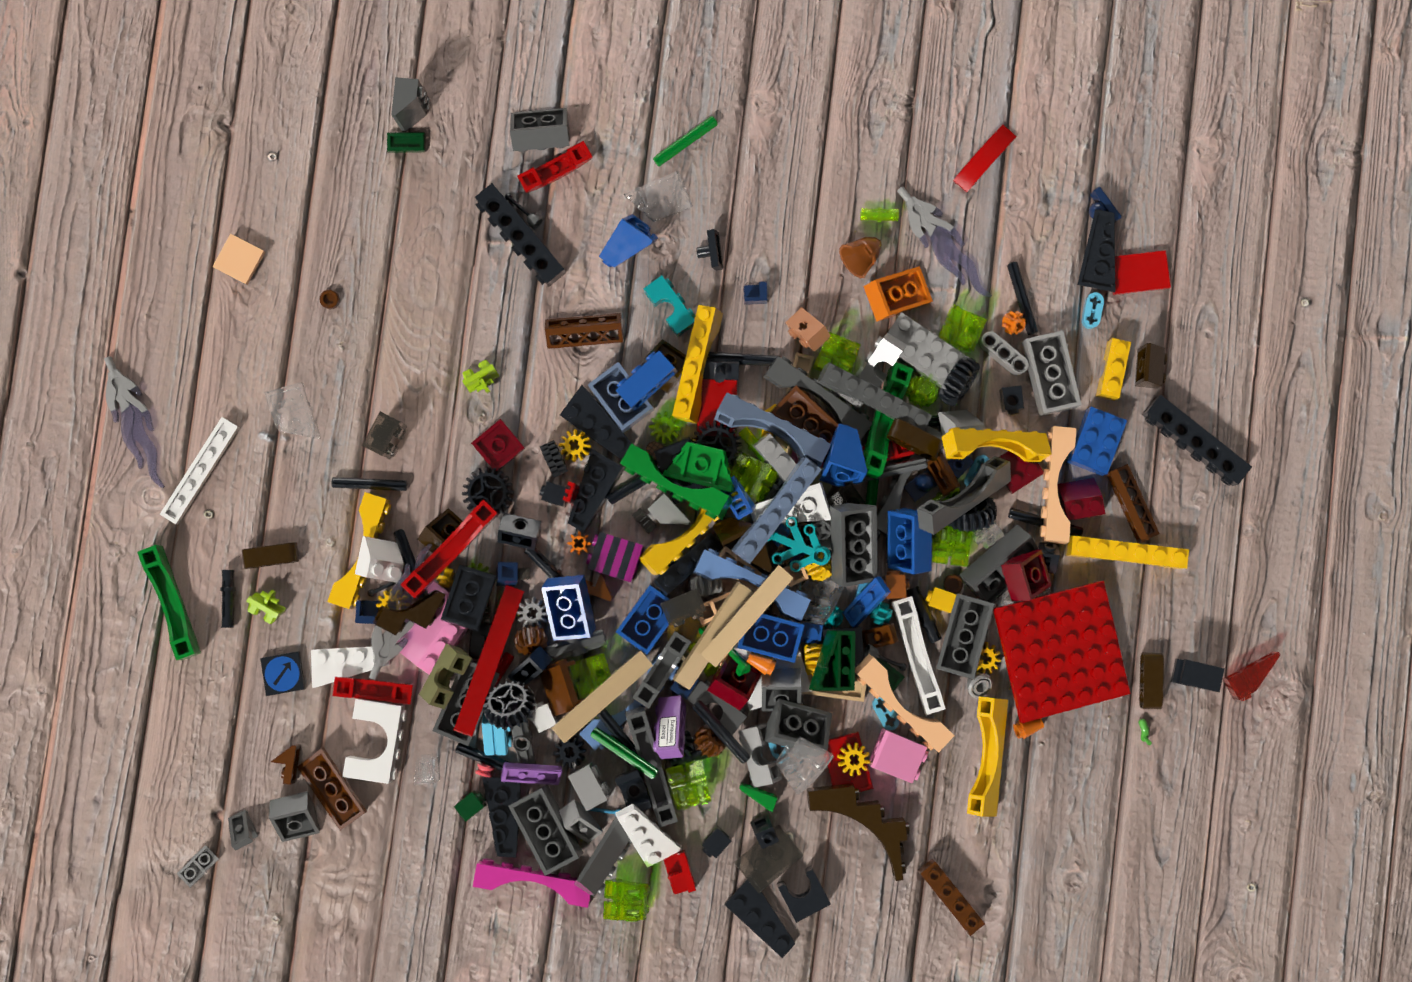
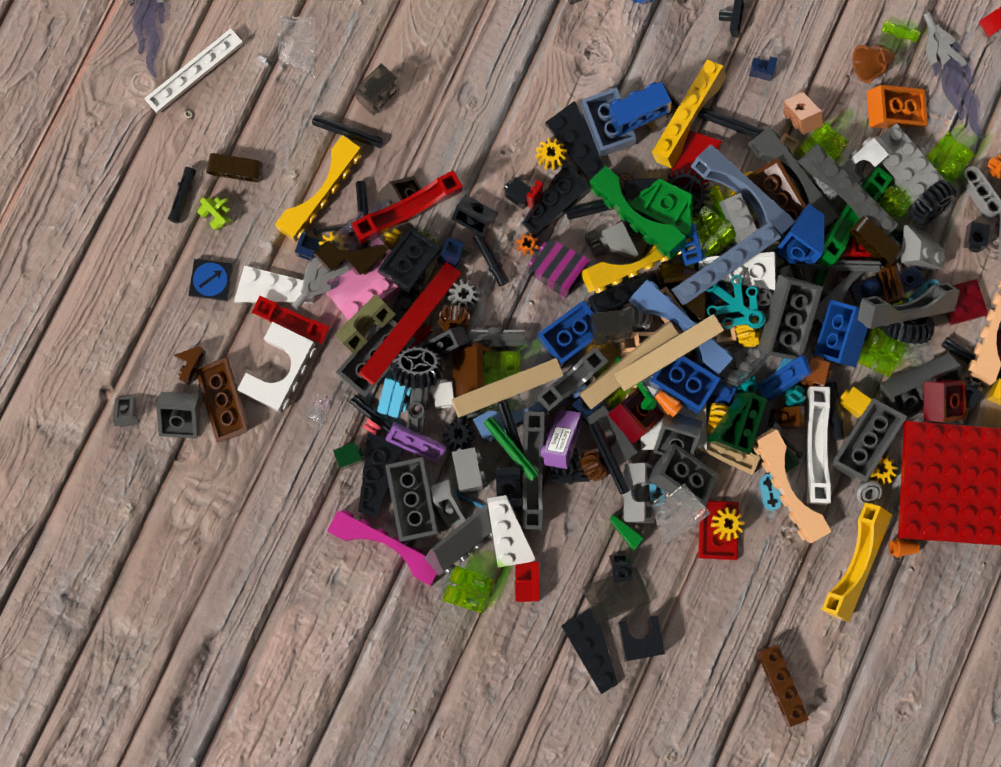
camera: 10 degrees right, 5 degrees down
(179, 626) = (128, 176): green arch -> none
(198, 866) = (72, 434): light grey slope -> none
(379, 560) = (335, 201): white slope -> none
(481, 379) = (482, 67): lime hips -> none
(497, 489) = (463, 171): black gear -> none
(498, 445) = (479, 132): dark red plate -> none
(554, 458) = (528, 158): black tyre -> none
(568, 607) = (500, 298): blue brick -> none
(583, 326) = (591, 46): reddish brown fence -> none
(600, 590) = (532, 294): reddish brown slope -> none
(659, 431) = (647, 166): clear neon green gear -> none
(661, 291) = (675, 39): teal arch -> none
(689, 787) = (562, 502): clear neon green hips -> none
(716, 842) = (571, 563): black brick -> none
(721, 370) = (710, 126): black tile -> none
(889, 831) = (739, 605): dark brown arch -> none
(898, 756) = (771, 535): bright pink slope -> none
(953, 583) = (871, 390): reddish brown tile -> none
(1027, 445) = (979, 281): yellow arch -> none

